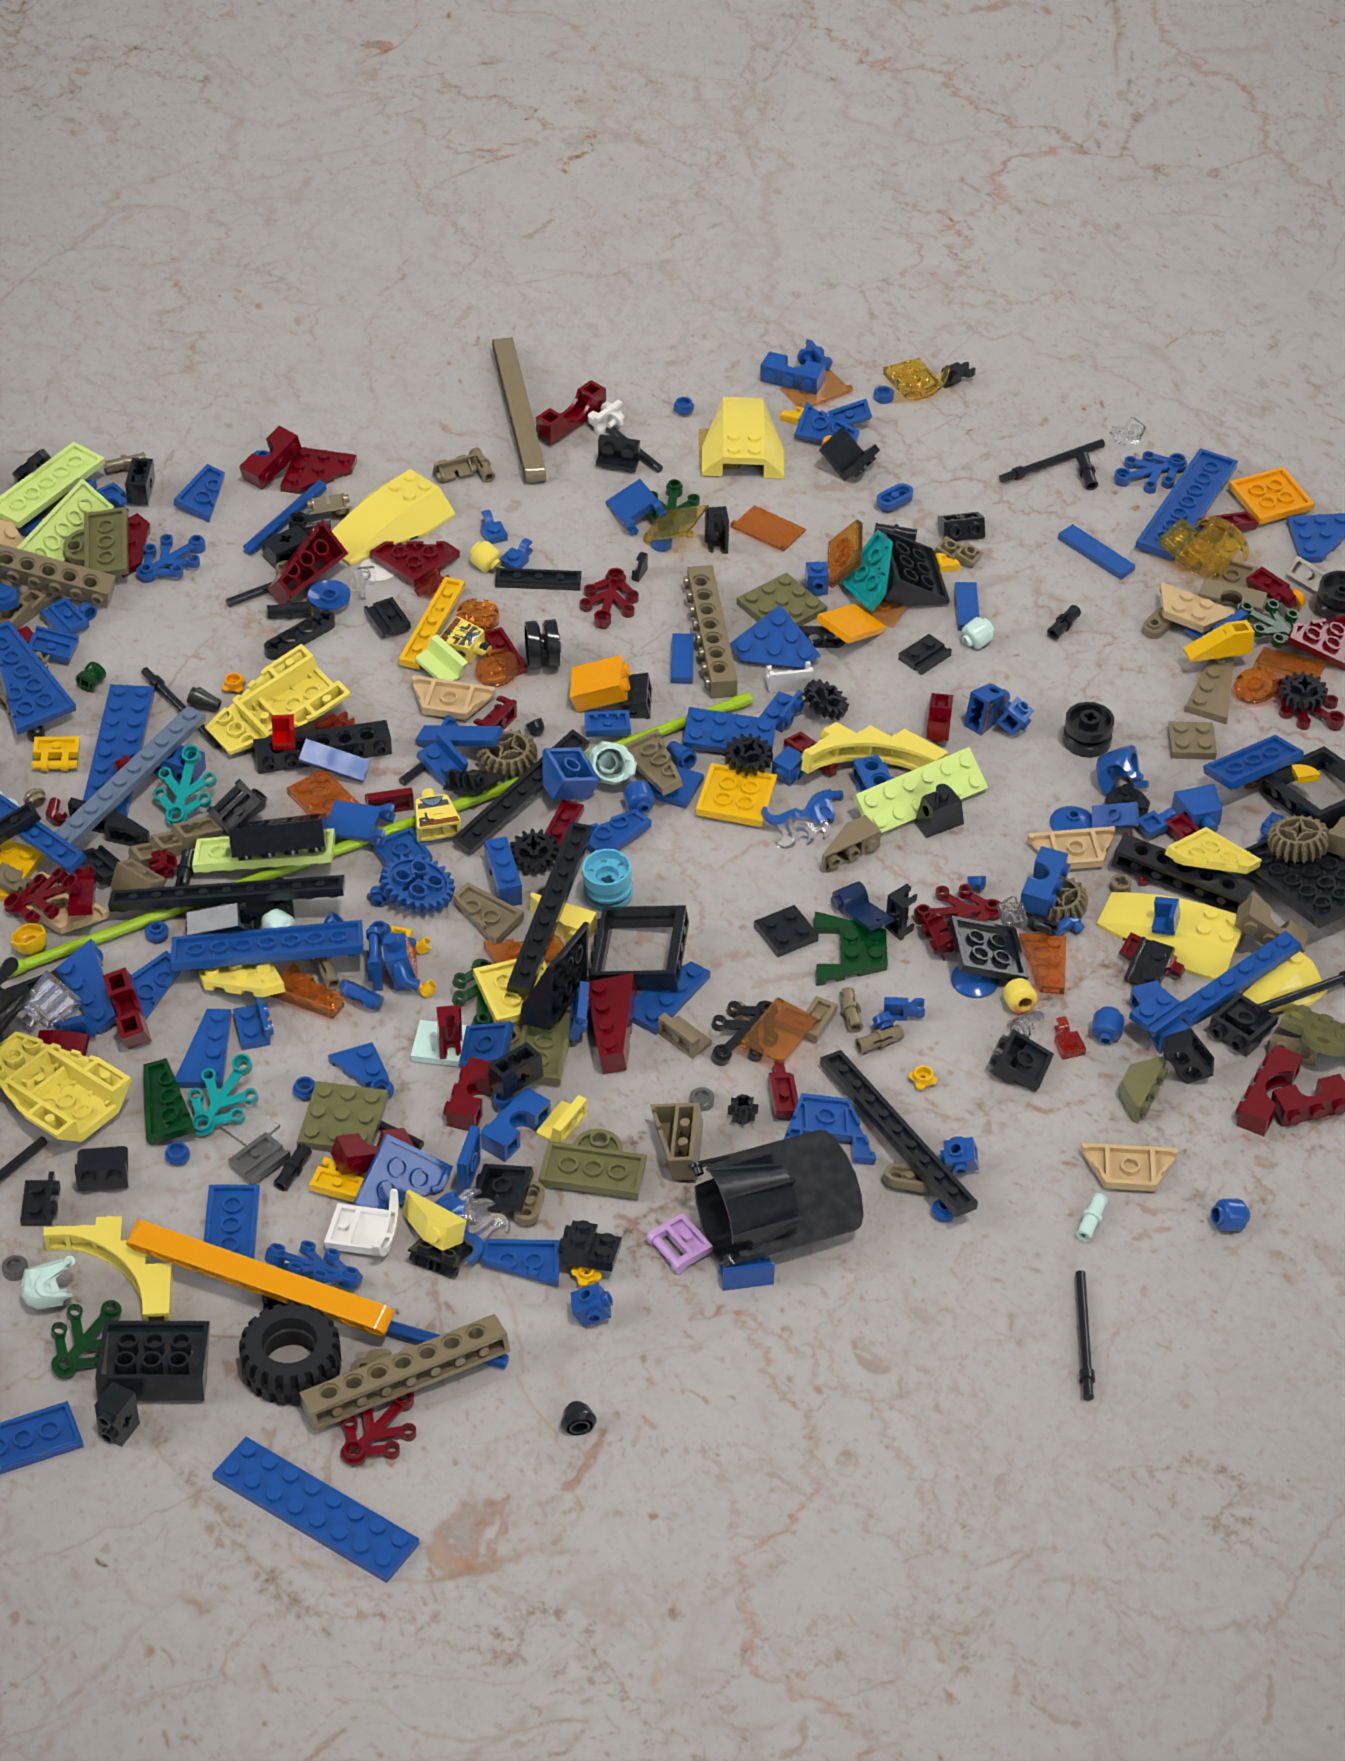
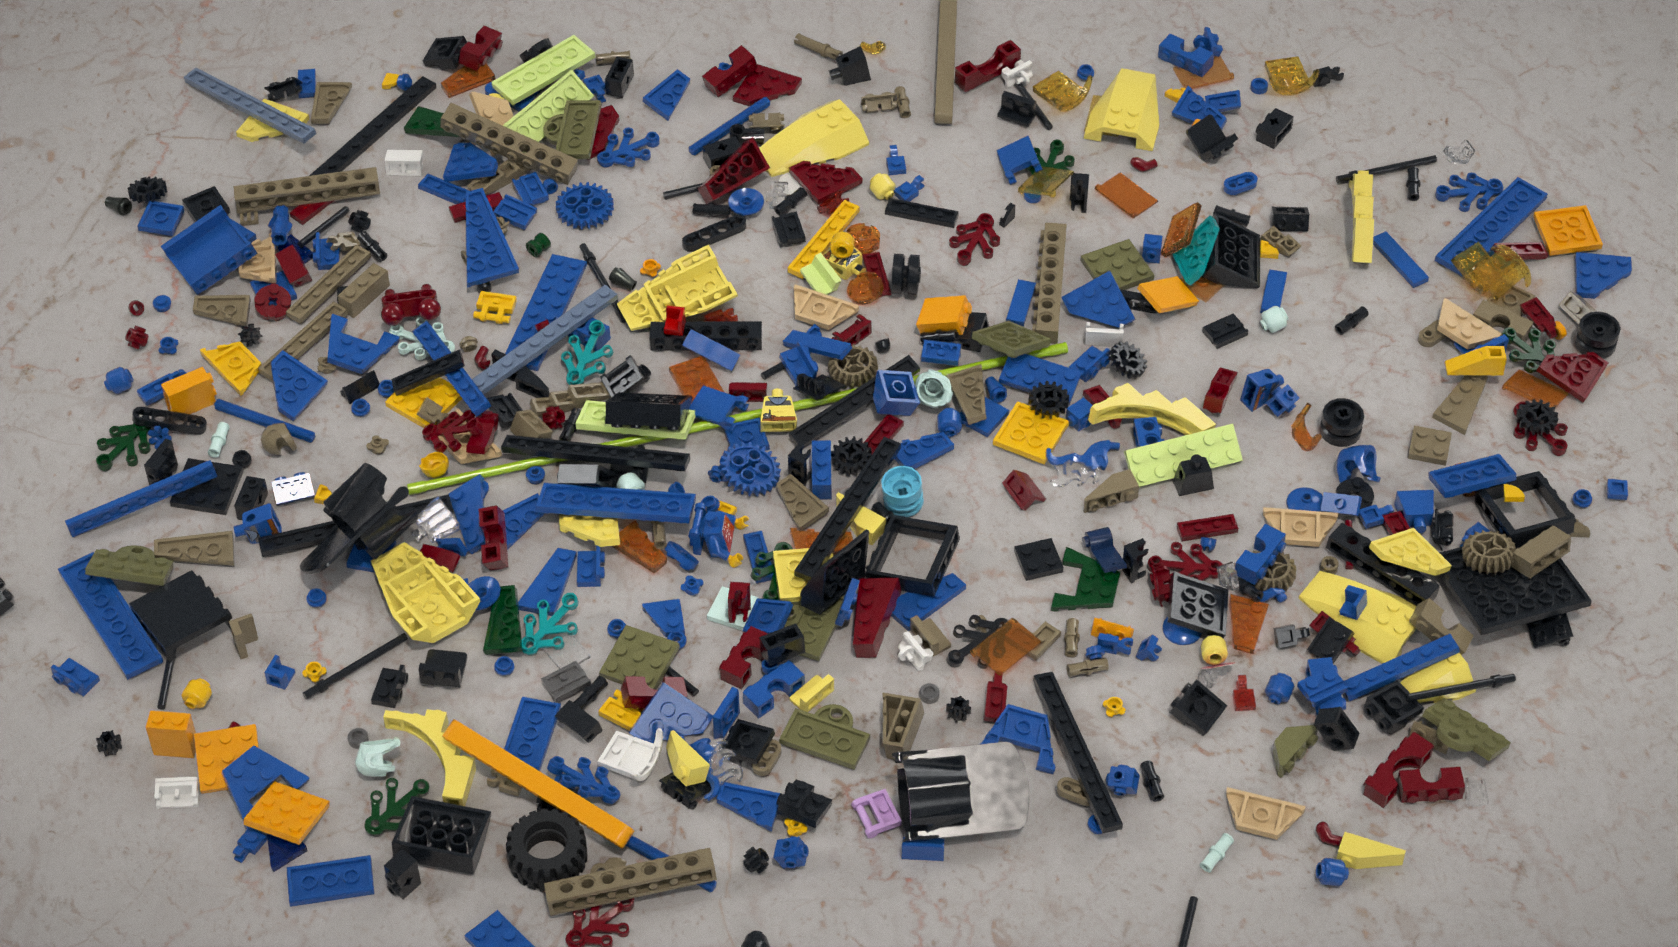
camera: 15 degrees right, 5 degrees up
(135, 626) = (584, 205): none -> blue gear
(136, 1067) = (486, 589): none -> blue dish
(216, 1288) = (505, 785): none -> dark tan plate
(288, 1199) = (579, 721): none -> black hinge
(374, 421) = (824, 49): none -> dark tan pin
(381, 587) = (790, 201): none -> black pin
(382, 1025) = (689, 588): none -> blue plate
(413, 434) = (851, 67): none -> black torso
(430, 413) = (873, 48): none -> clear yellow arm
(445, 968) = (754, 544): none -> blue tile
(460, 622) = (842, 245): none -> yellow head
(476, 867) = (797, 464): none -> black hinge
(550, 1321) = (756, 860): none -> black gear
(583, 903) = (882, 511): none -> black pin
(599, 704) = (941, 336): none -> black pin
(663, 429) = (1062, 91): none -> clear yellow piece
(669, 1054) = (911, 649): none -> white hips
(685, 695) = (1011, 339): none -> olive plate
(744, 857) = (1022, 489): none -> dark red panel
(778, 494) = (1143, 165): none -> dark red arm
(883, 990) = (1107, 627): none -> light orange hinge
(915, 435) = (1274, 128): none -> black brick
(944, 1007) = (1147, 649): none -> blue tile
(969, 865) = (1207, 527): none -> dark red tile
(999, 1161) = (1152, 781): none -> black pin
(1044, 750) = (1301, 434): none -> clear orange helmet
(1048, 516) = (1362, 216): none -> light yellow arch
(1099, 966) = (1288, 635): none -> plate
(1210, 1177) = (1326, 835): none -> dark red arm
(1234, 818) = (1443, 534): none -> black hinge
(1255, 685) = (1499, 404): clear orange tile -> none
(1265, 1187) = (1366, 853): none -> light yellow slope

